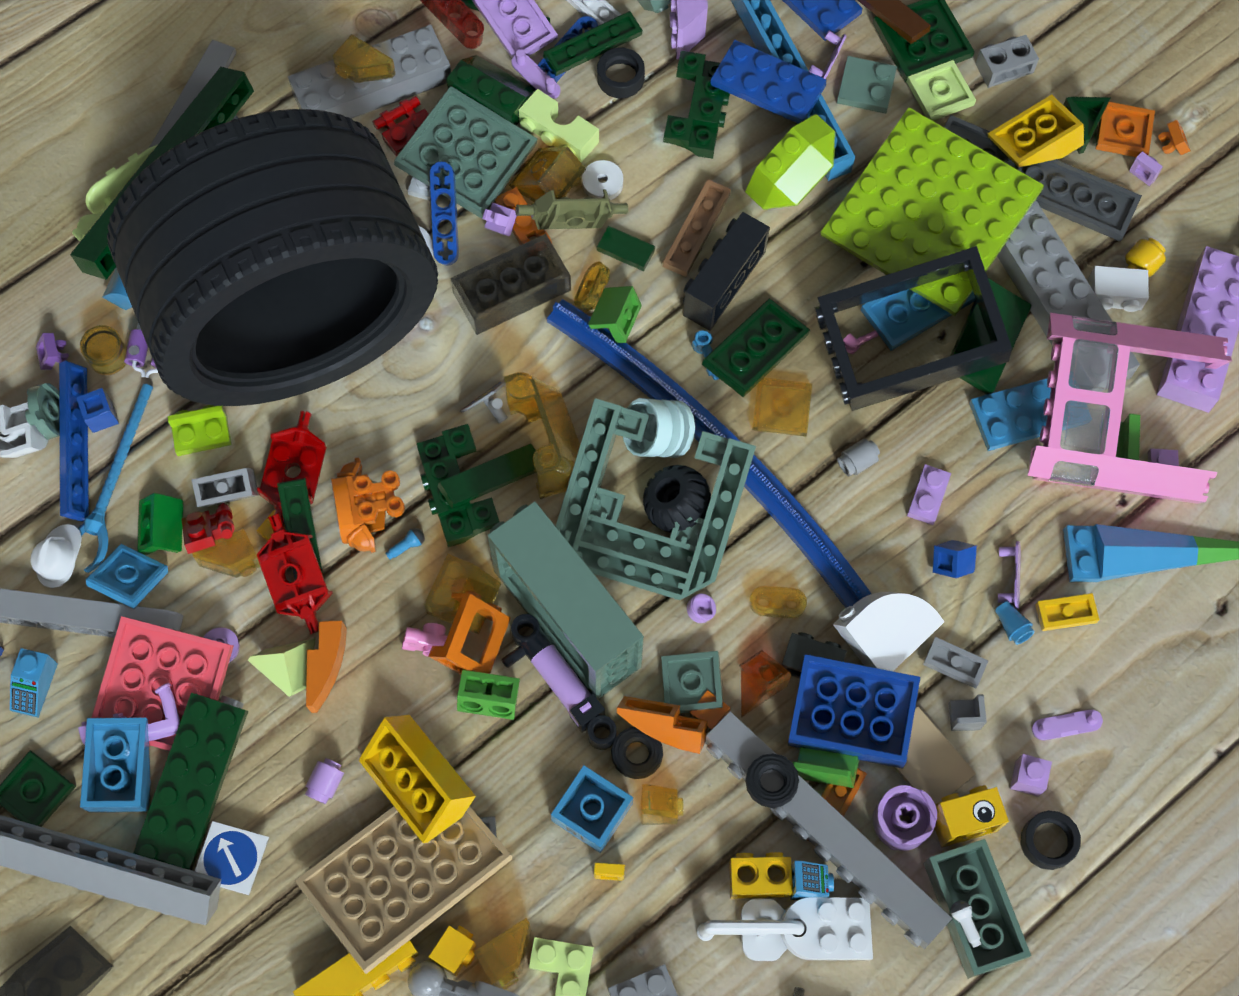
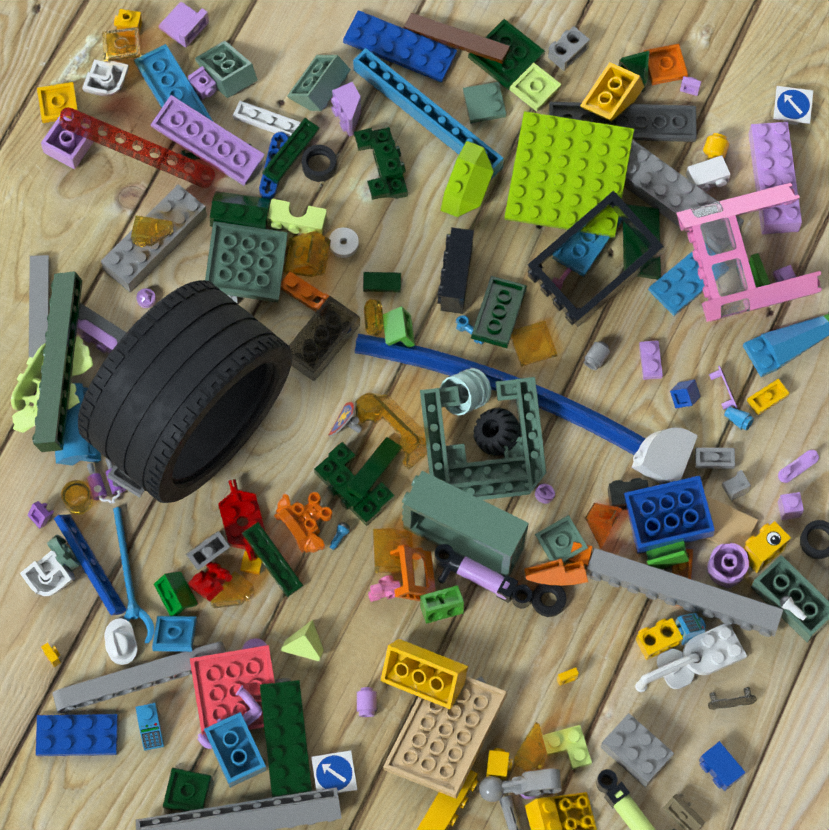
camera: 25 degrees left, 0 degrees up
(97, 410) = (95, 537): blue panel -> none
(199, 430) = (168, 522): lime bracket -> none
(309, 590) = (276, 569): red plate -> none
(324, 663) = (328, 630): orange slope -> none
(399, 134) = (197, 264): red plate -> none
(447, 213) = (257, 308): blue beam -> none
(499, 219) = (291, 297): lavender tile -> none
(534, 74) = (263, 189): lavender piece -> none
(571, 213) = (327, 279): olive plate -> none
(592, 809) = (540, 644): dark azure brick -> none
(660, 805) = (579, 624): clear yellow slope -> none
(696, 228) = (421, 248): medium nougat plate -> none
(760, 794) = (640, 565): black tyre -> none
(768, 82) = (424, 131): blue plate -> none
(777, 599) = (589, 469): clear yellow plate -> none
(838, 41) = (453, 80): lavender piece -> none
(1176, 137) = (701, 56): orange tile -> none

